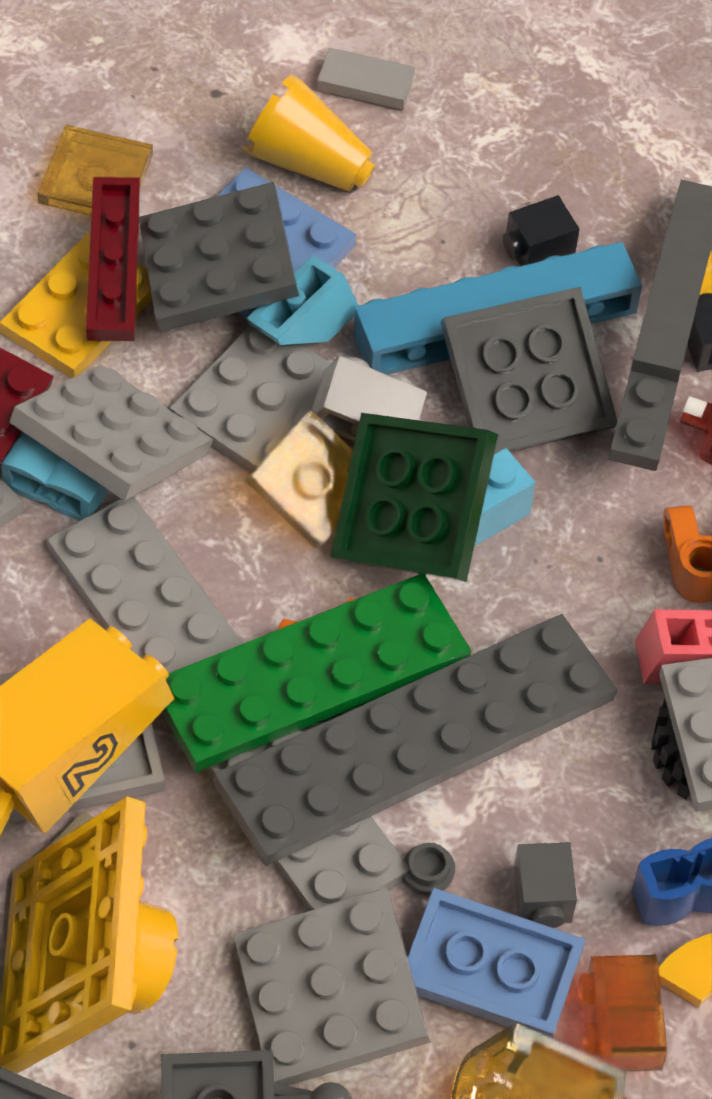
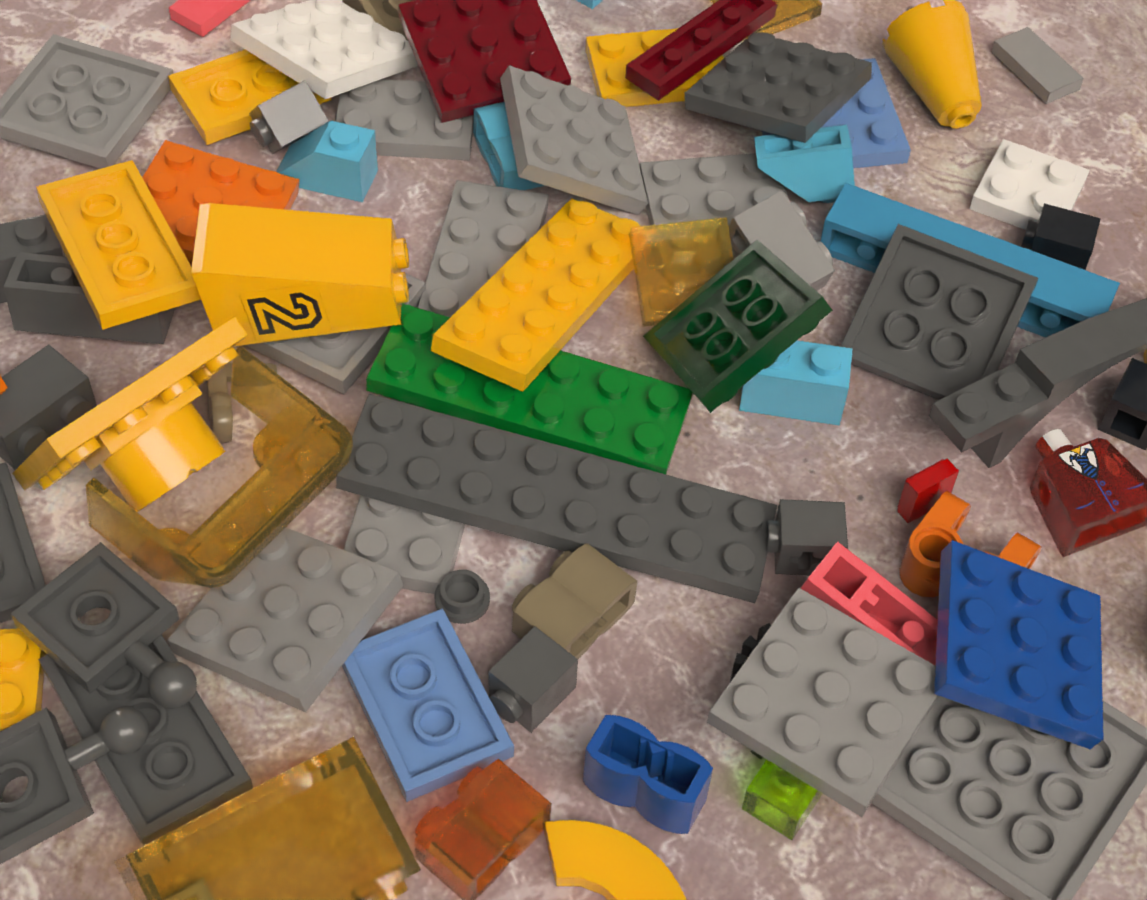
camera: 45 degrees right, 5 degrees down
(229, 876) = (297, 460): none -> clear yellow windscreen
(240, 582) = (540, 296): none -> yellow plate
(465, 200) = (1024, 180): none -> white plate
(511, 803) = (576, 601): none -> dark tan brick
(610, 619) = (805, 534): none -> dark grey brick
(647, 517) = (925, 488): none -> red tile

